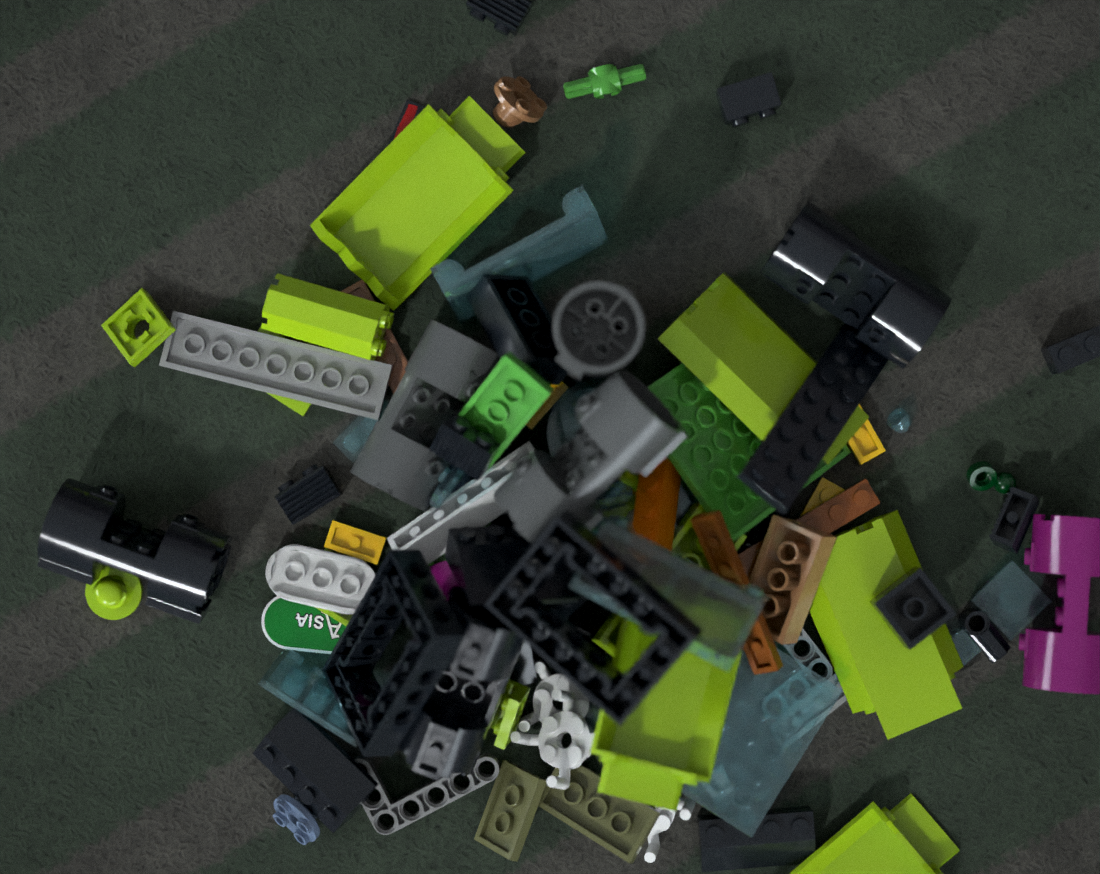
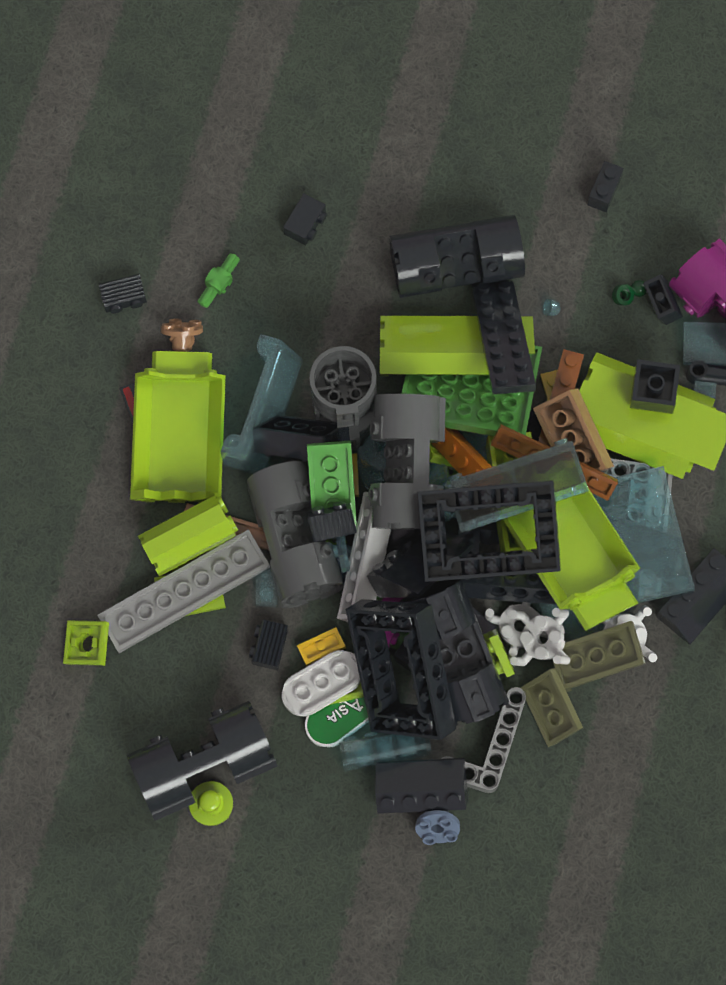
camera: 35 degrees left, 15 degrees down
(865, 443) = (545, 335): yellow plate -> none

